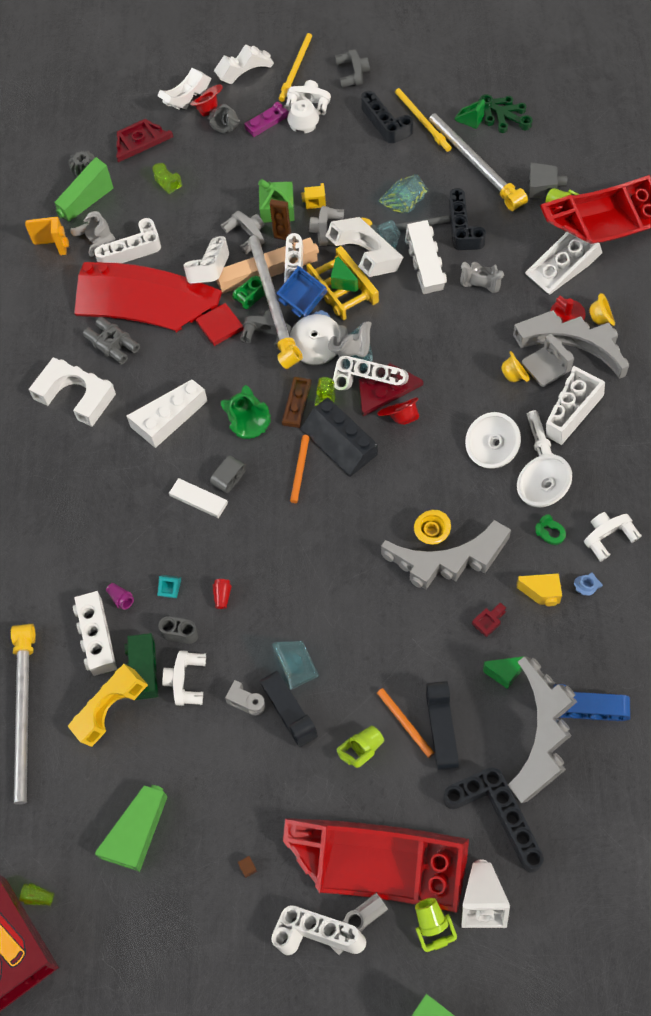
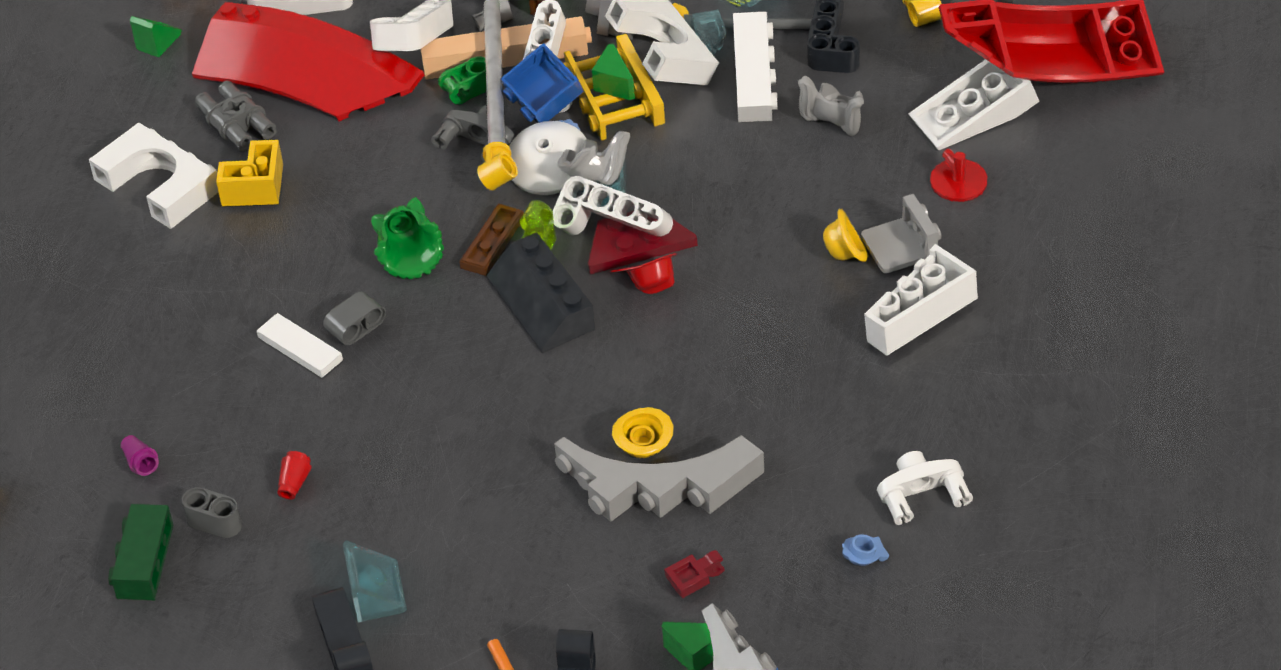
camera: 10 degrees right, 15 degrees down
(43, 290) = (153, 36): none -> green slope
(89, 723) = (40, 608): yellow arch -> none
(105, 660) = (85, 498): white brick -> none
(138, 386) = (252, 180): none -> yellow brick
(167, 412) = (289, 222): white wedge -> none
(168, 586) = (217, 455): teal slope -> none
(175, 678) = (189, 573): white connector -> none
(219, 324) = (407, 118): red tile -> none
(245, 701) = (281, 621): light grey leg -> none
(299, 469) = (467, 329): orange bar -> none
(484, 434) = (776, 328): white dish -> none
(539, 475) = (839, 395): white dish -> none
(541, 444) = (855, 349): white pin -> none
(541, 588) = (788, 542): yellow slope -> none
(547, 521) = (829, 455): green piece -> none
(576, 333) = (958, 204): light grey arch -> none
(601, 312) = (1010, 179): yellow hat -> none

